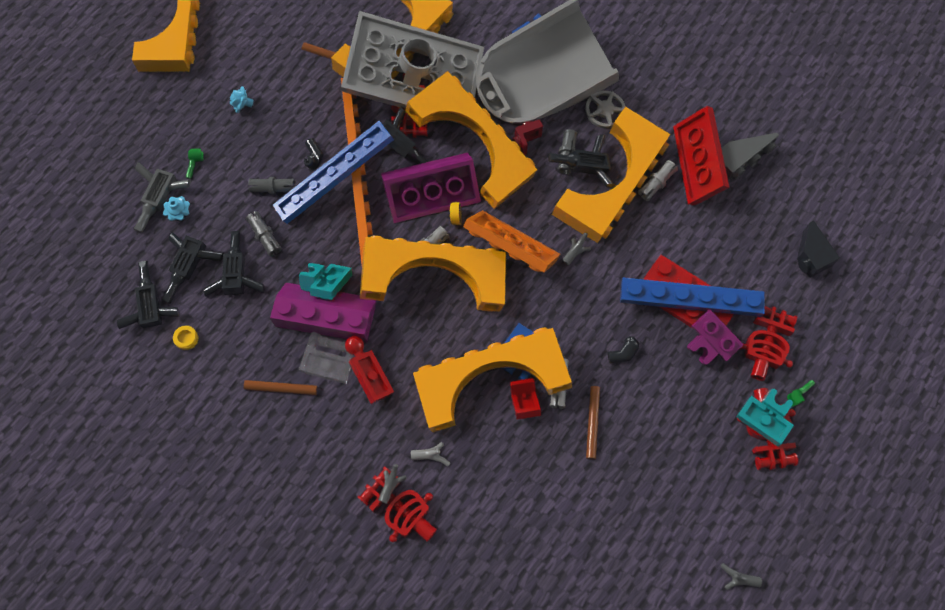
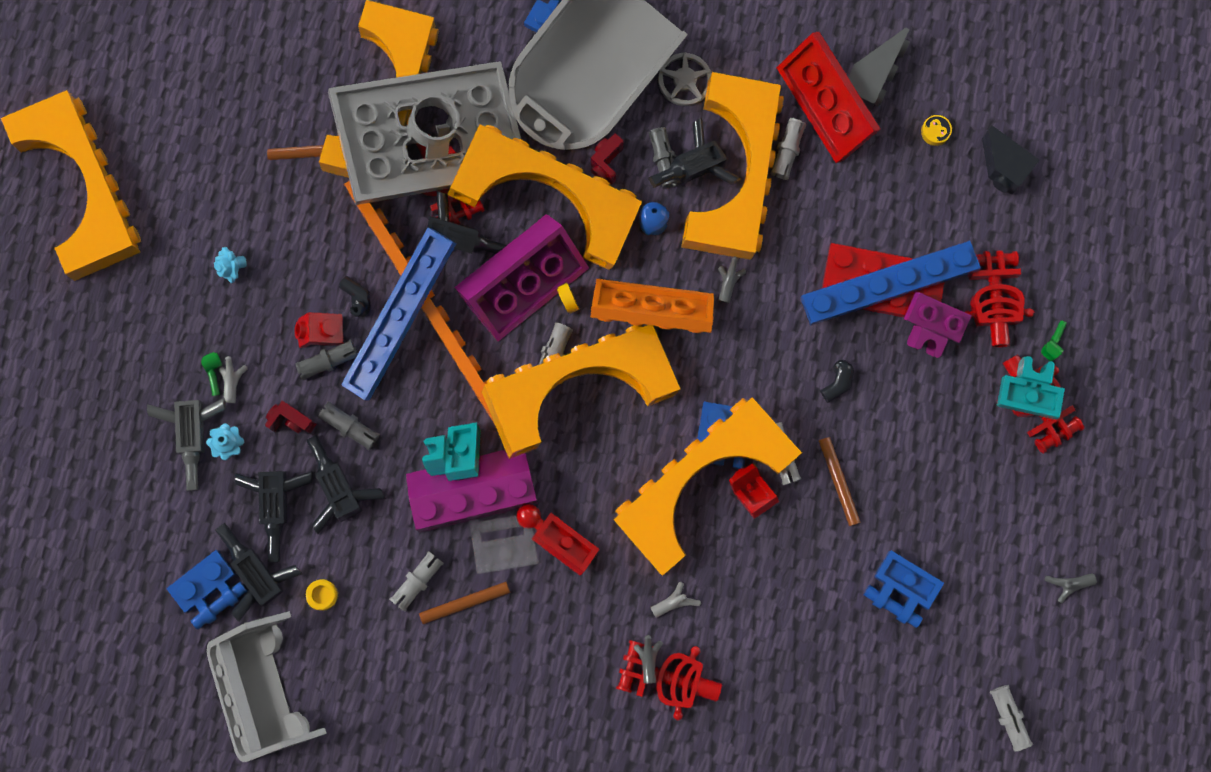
camera: 25 degrees left, 10 degrees up
(104, 378) = (253, 691): none -> light grey windscreen
(110, 293) = (201, 582): none -> blue plate
(202, 172) = (231, 379): none -> light grey bar
(225, 207) = (295, 419): none -> dark red bracket
(254, 357) = (416, 581): none -> light grey pin
(277, 163) = (319, 329): none -> red bracket
(540, 186) = (653, 218): none -> blue piece
(612, 516) = (907, 580): none -> blue plate
(771, 211) = (936, 130): none -> yellow tile

